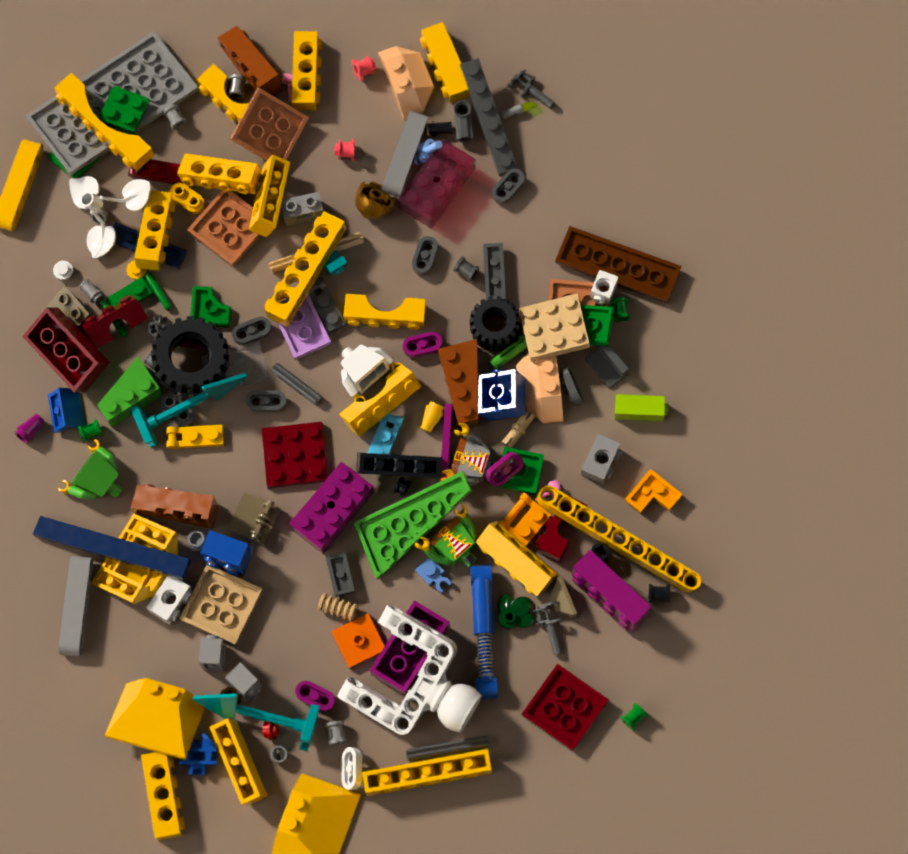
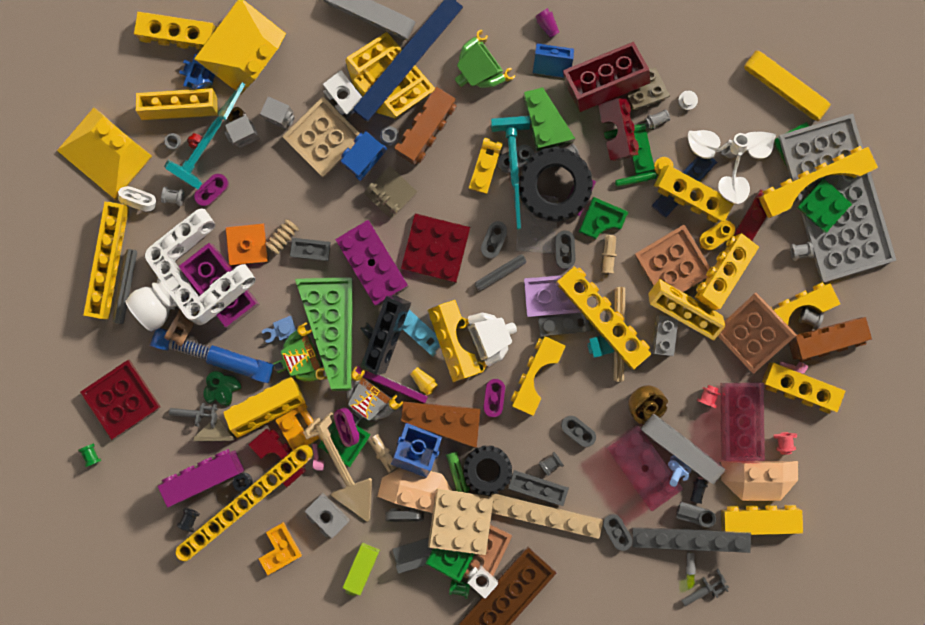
camera: 105 degrees right, 15 degrees up
(90, 430) = (524, 75): green bush -> none
(158, 323) = (599, 169): dark grey gear -> none
(241, 289) = (609, 254): none -> tan axle
(358, 111) = (746, 440): none -> clear pink brick
(460, 669) = (182, 323): none -> medium nougat plate
(518, 254) = (547, 516): none -> tan plate
(570, 439) = (355, 495): none -> tan piece

